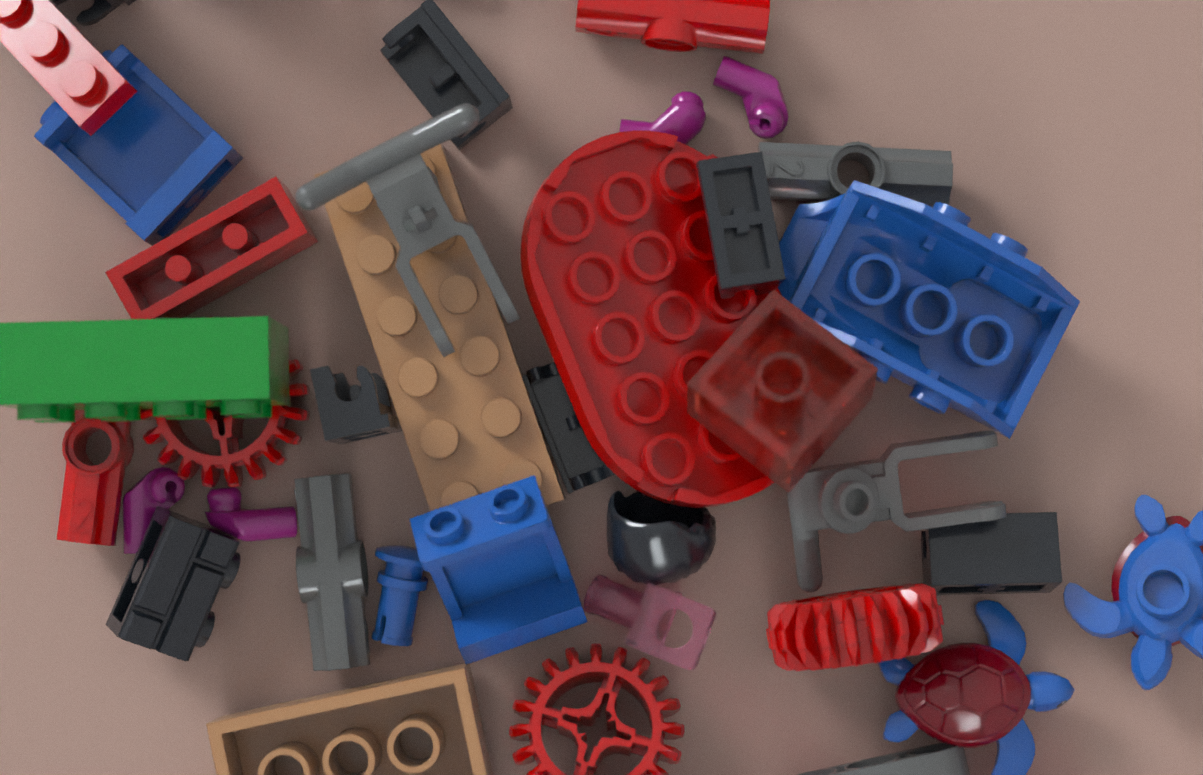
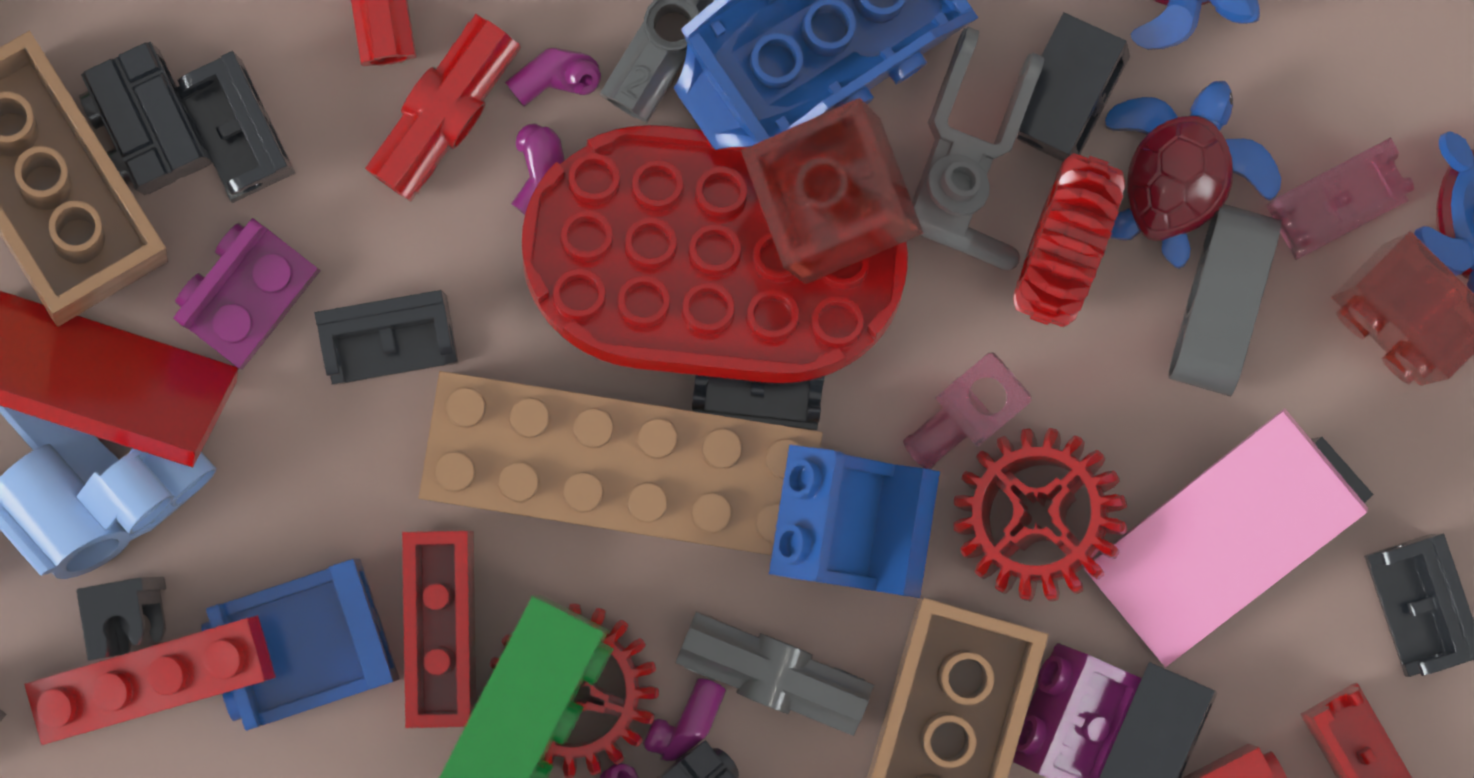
camera: 70 degrees left, 0 degrees up
(353, 411) = (652, 576): black hinge -> none
(399, 594) = (825, 624): blue pin -> none
(412, 205) = (501, 421): dark grey piece -> none
(657, 539) = (901, 370): black hair -> none
(741, 224) = (666, 147): black hinge -> none

